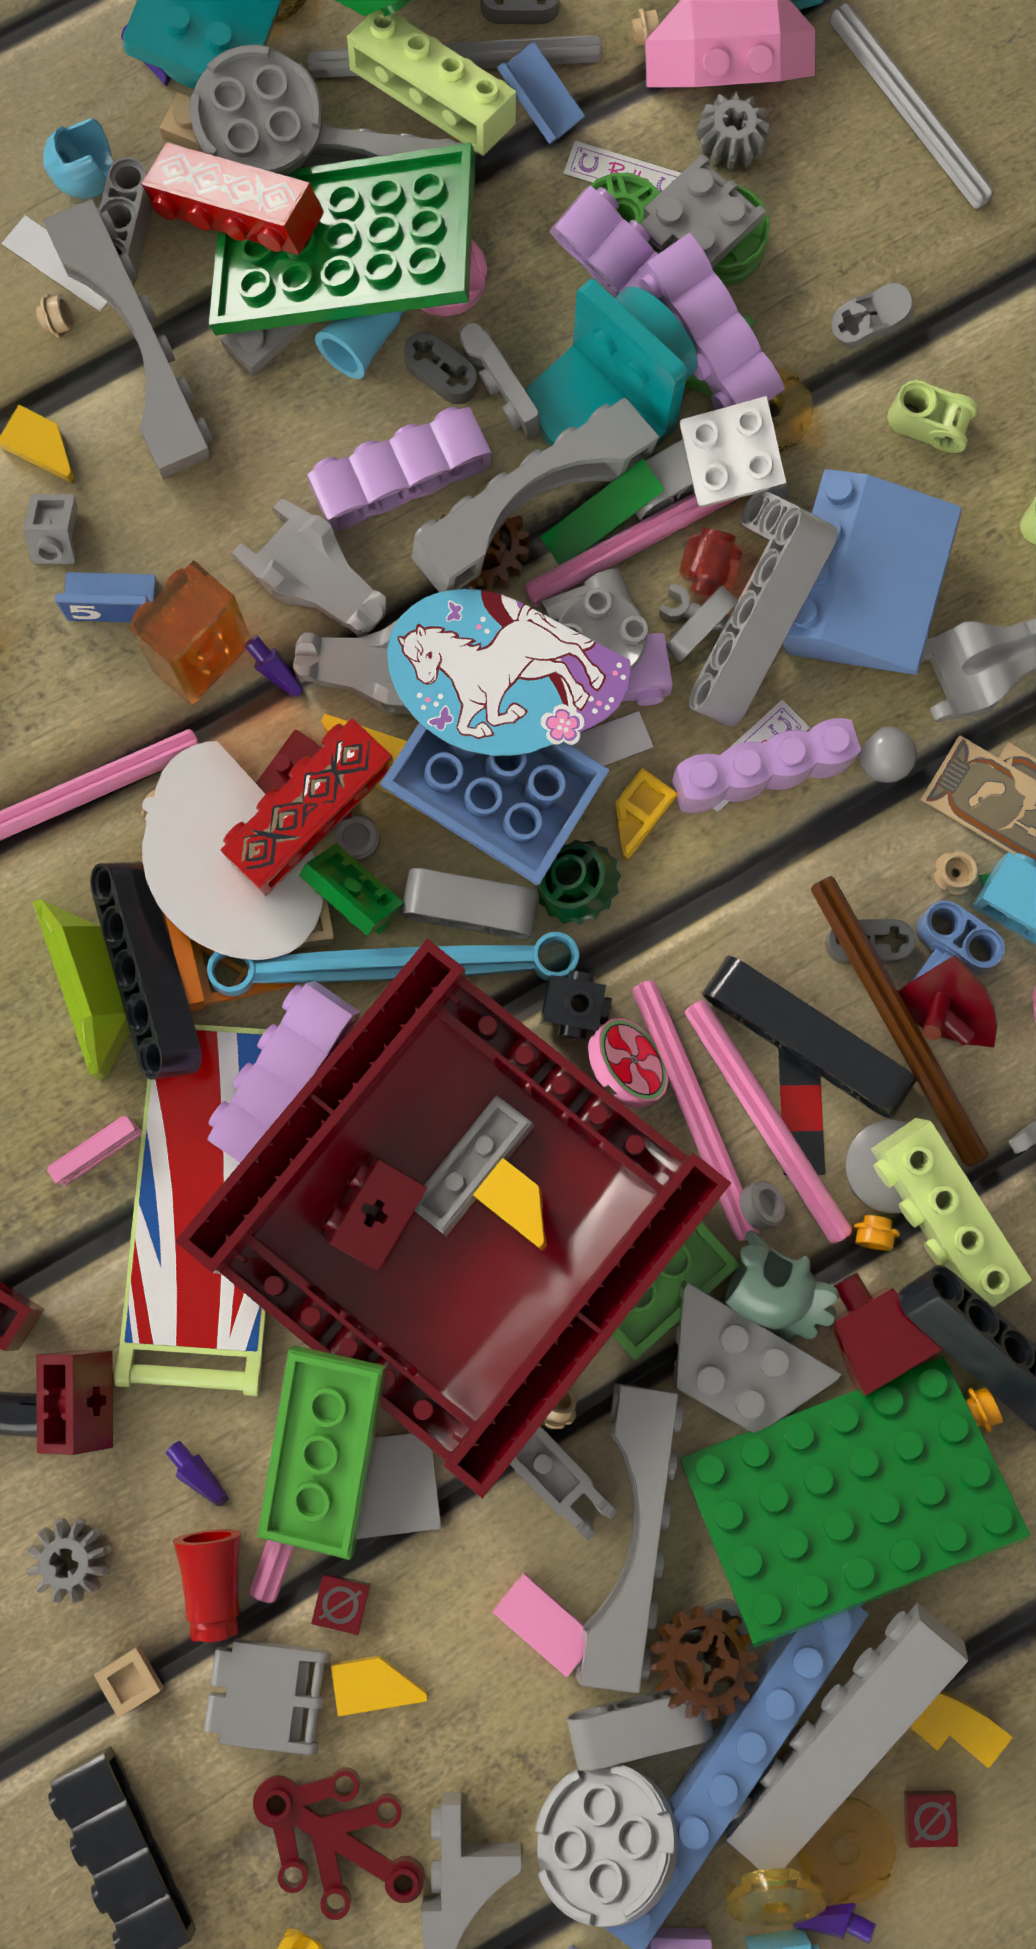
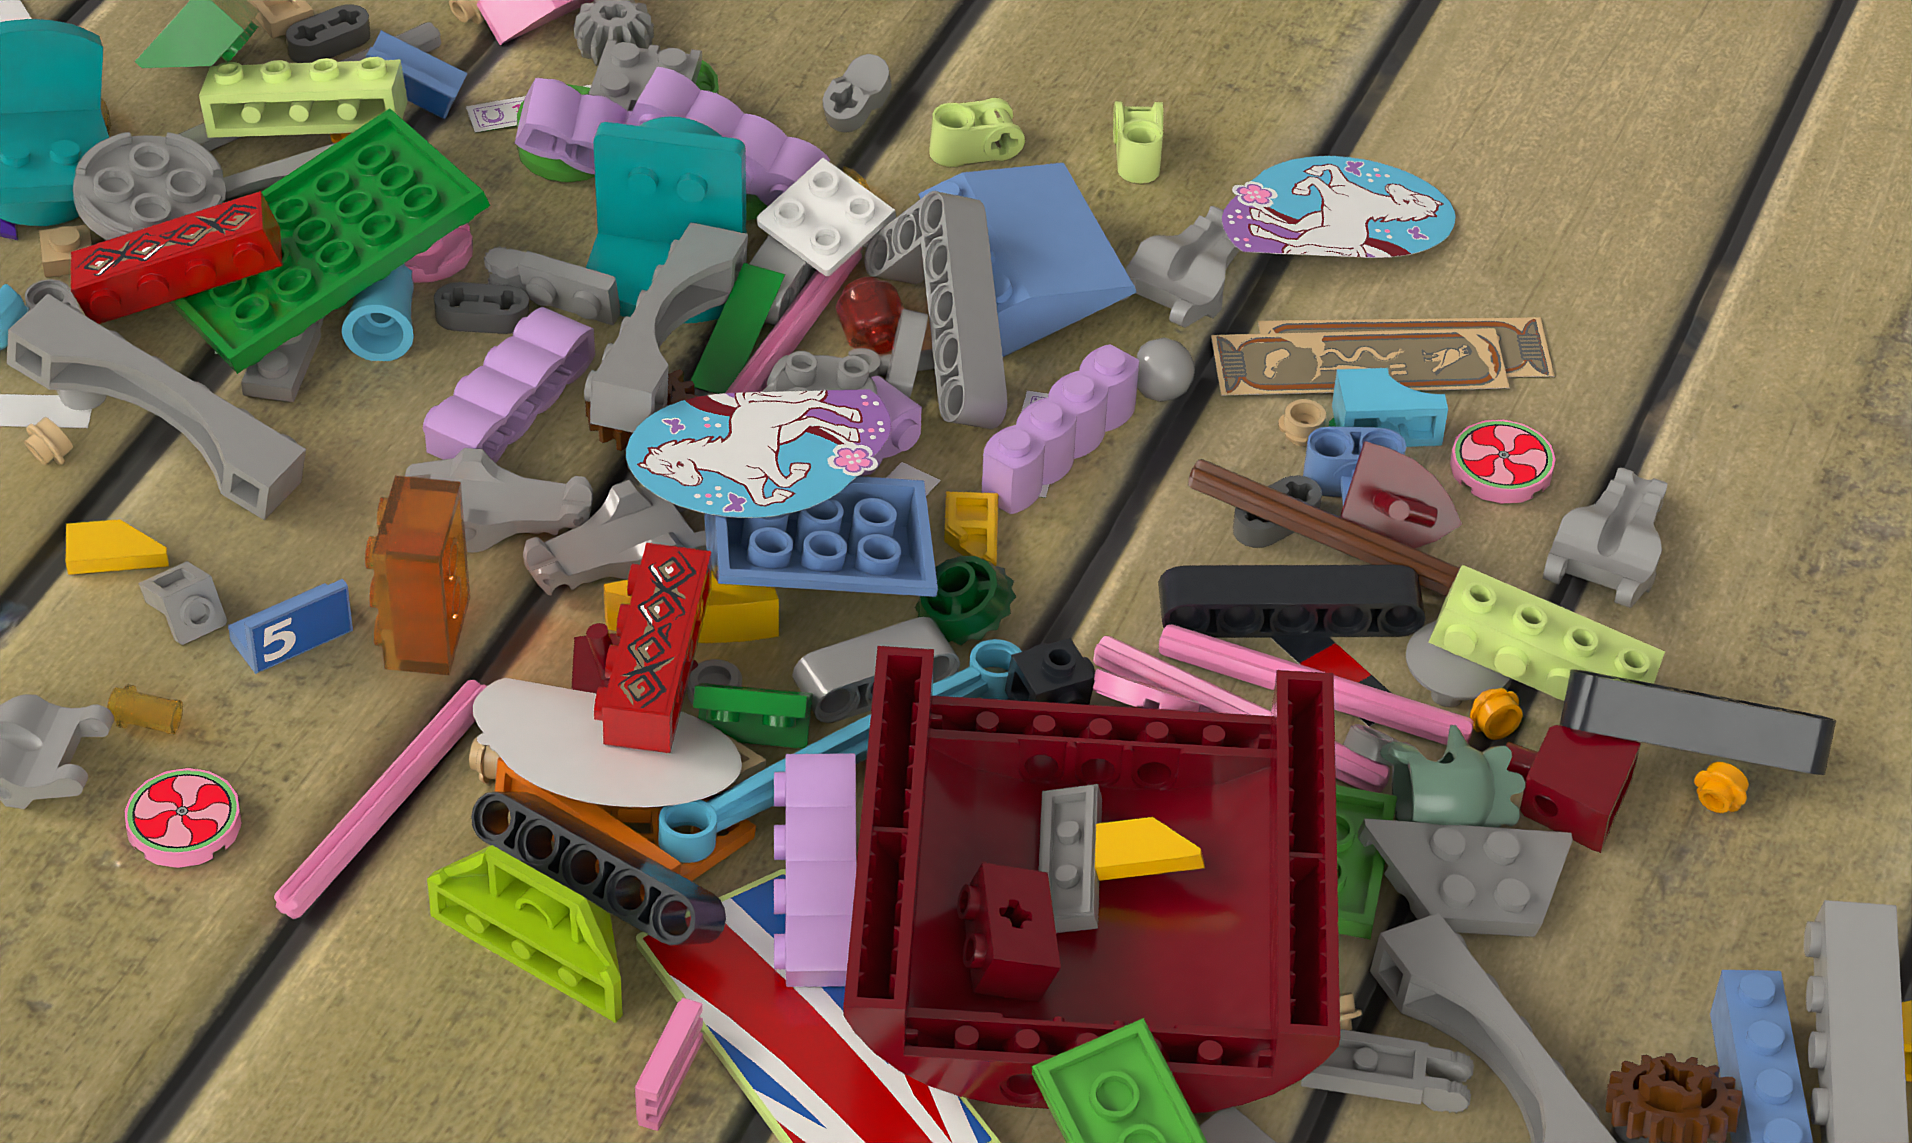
camera: 35 degrees left, 35 degrees down
(273, 666) = (511, 595): dark purple bar -> none
(852, 1501) = (1675, 907): green plate -> none

